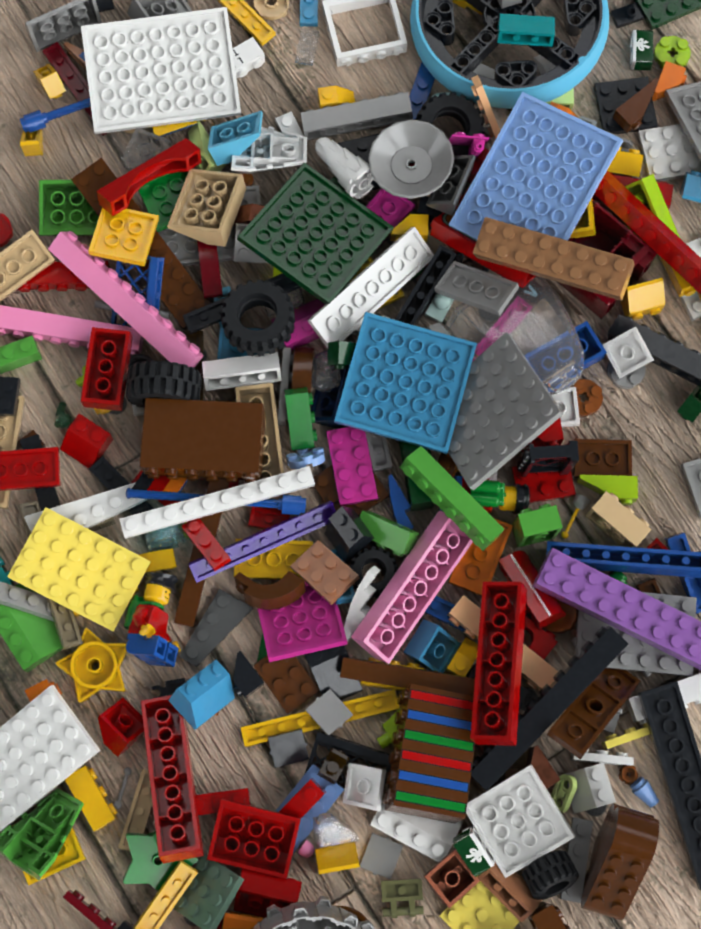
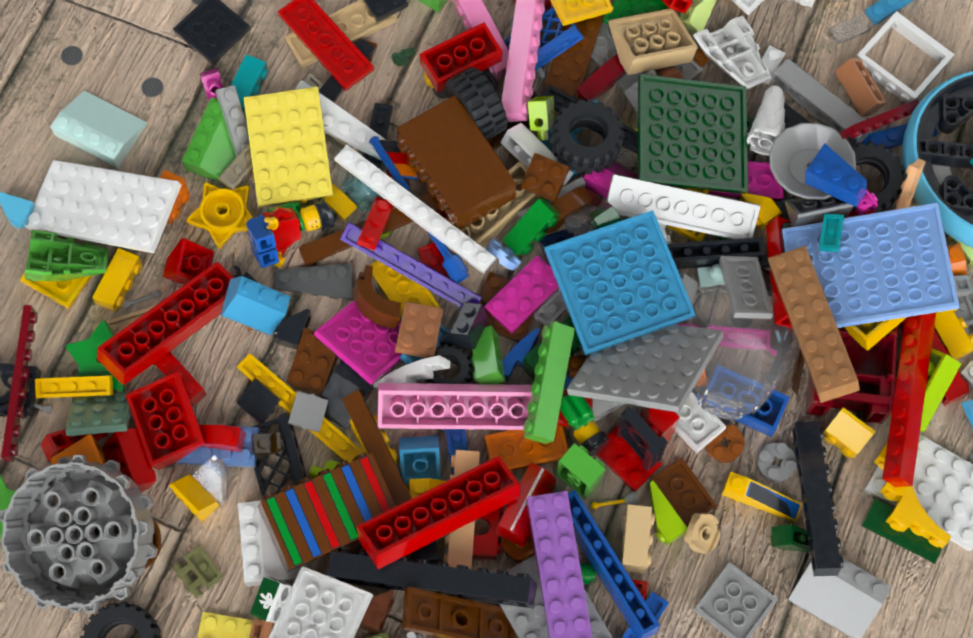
camera: 55 degrees right, 5 degrees down
(85, 441) = (396, 85): red slope -> none
(207, 340) = (541, 108): none -> lime torso
(234, 137) = (722, 19): medium azure slope -> none
(268, 376) = (545, 177): none -> reddish brown plate
(306, 849) = (186, 469): bright pink hinge -> none
(334, 96) = (824, 75): yellow slope -> none
(364, 786) = (266, 478): white plate -> none
(365, 76) = (860, 87): none -> nougat brick
(381, 856) = (221, 534): light grey piece -> none
(409, 83) = (877, 121): none -> dark red plate
(444, 151) = (835, 177): none -> blue wedge
(450, 879) = (236, 596): copper slope -> none
(485, 189) = (831, 232): none -> teal plate
(628, 352) = (788, 448): white plate -> none
(645, 402) = (760, 497): none -> slope
(646, 467) = (699, 524): none -> tan plate
(649, 586) = (601, 605): reddish brown tile -> none

